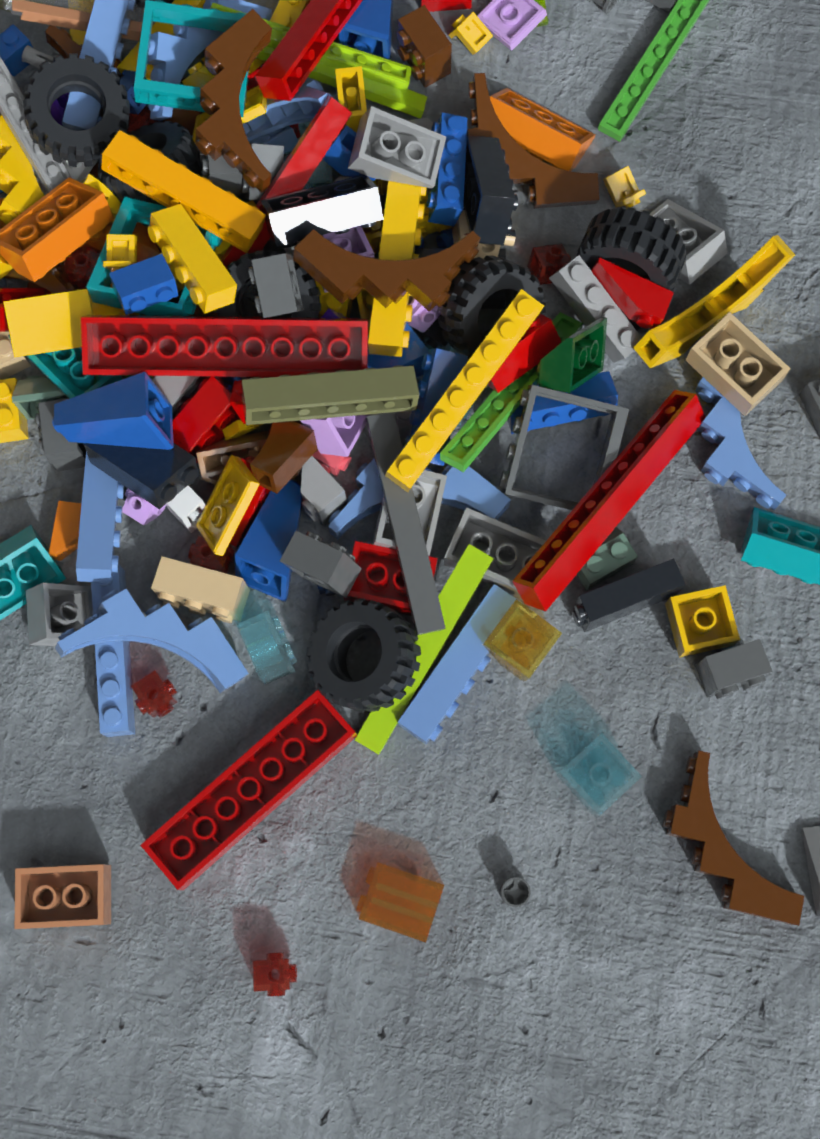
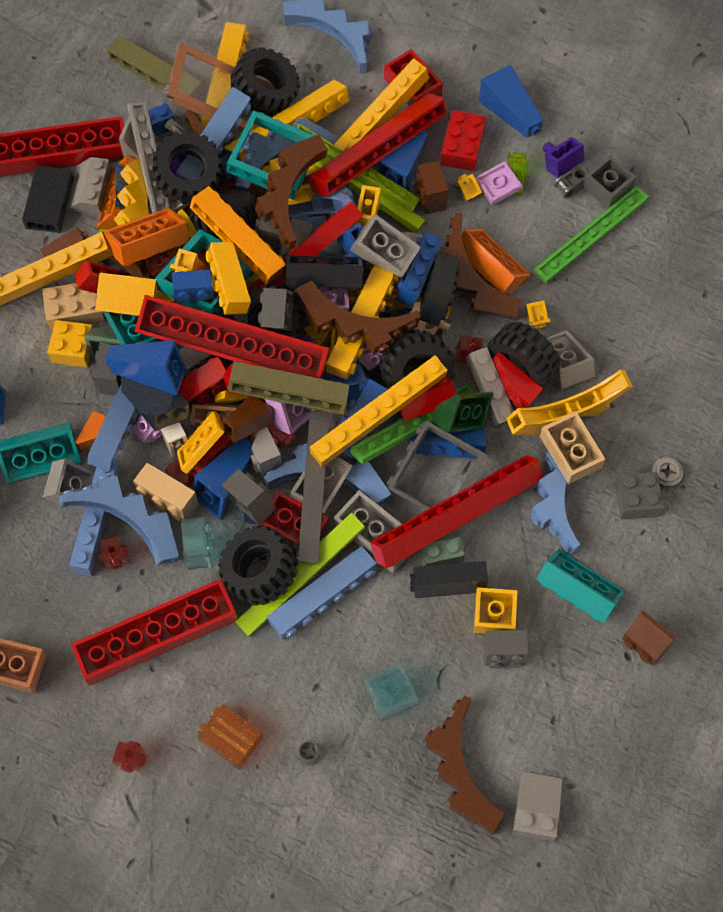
camera: 15 degrees right, 10 degrees down
(521, 640) = (367, 588): clear yellow slope -> none

